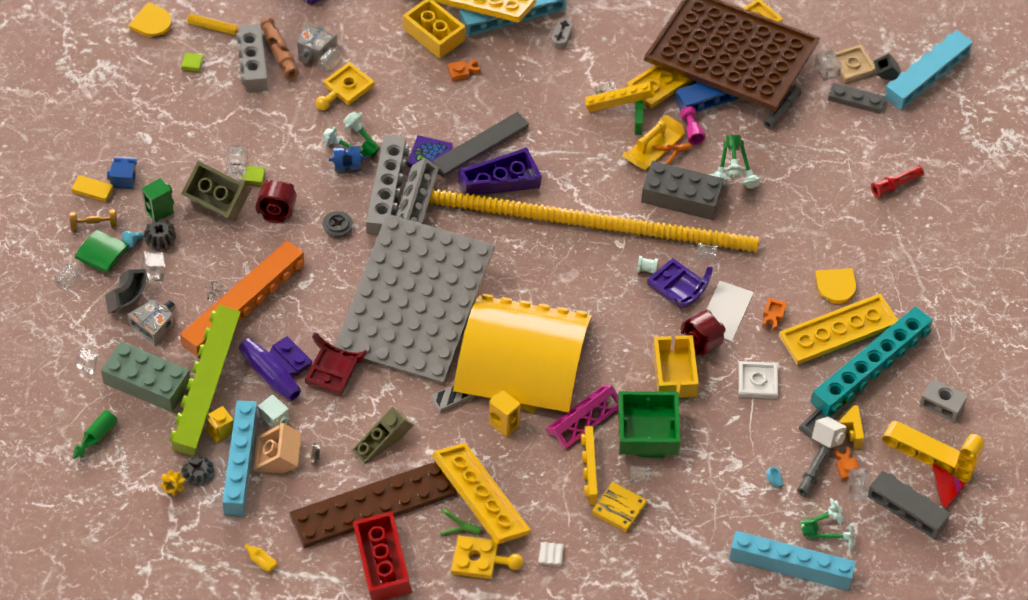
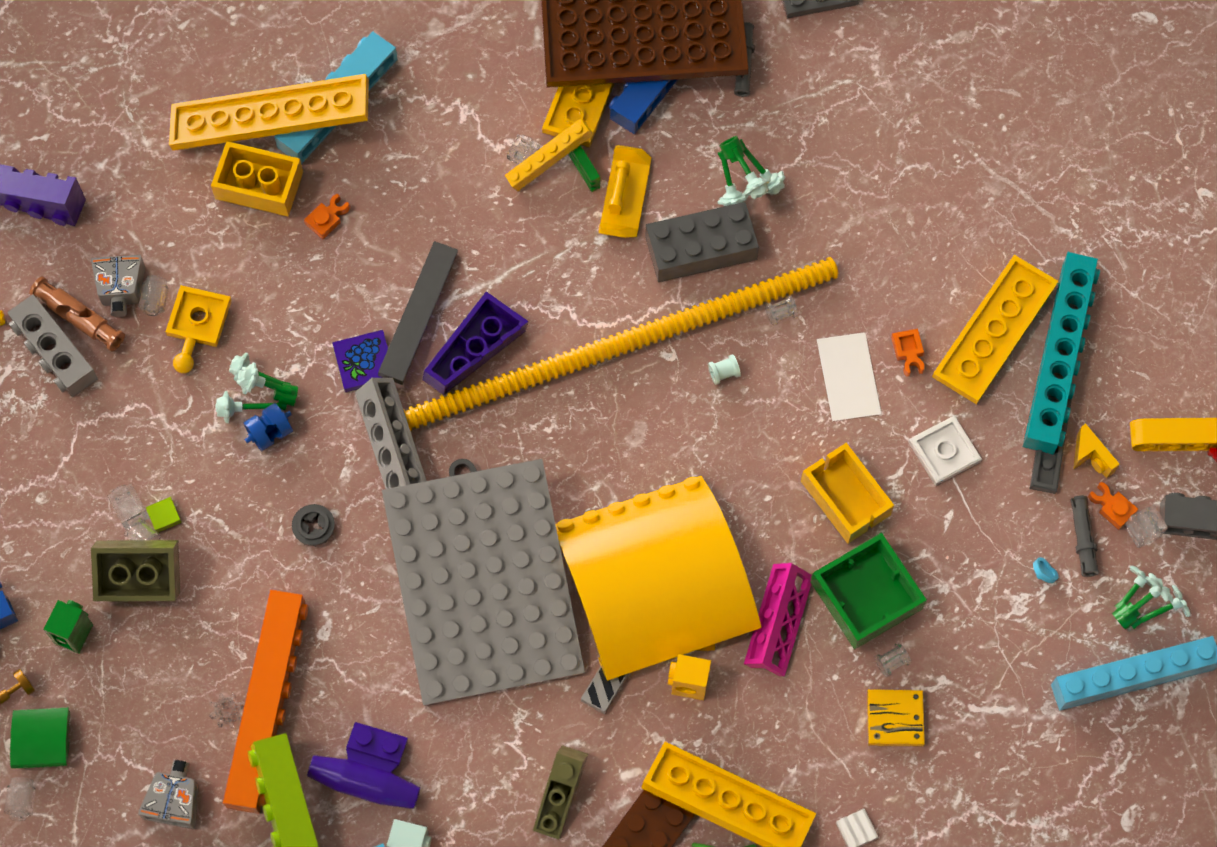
camera: 30 degrees left, 15 degrees up
(129, 289) = (114, 779): dark grey brick -> none
(131, 238) = (65, 696): medium azure rock -> none
(154, 265) = (123, 723): clear brick -> none
(159, 234) = (90, 665): dark grey gear -> none
(276, 201) = (220, 540): dark red brick -> none
(332, 367) = (439, 731): dark red piece -> none
(387, 182) = (311, 379): light grey brick -> none
(558, 32) = (411, 99): light grey beam -> none
(589, 472) = (835, 693): yellow plate -> none
(676, 149) = (655, 188): orange plant -> none
(679, 283) = (776, 373): dark purple piece -> none
(694, 131) = (661, 149): dark pink piece -> none
(706, 332) = (851, 424): dark red brick -> none
(829, 432) = (1075, 478): white brick -> none
(836, 284) = (954, 269): yellow tile -> none
(890, 183) = (932, 96): red pin -> none
(950, 407) = (1157, 365): light grey brick -> none

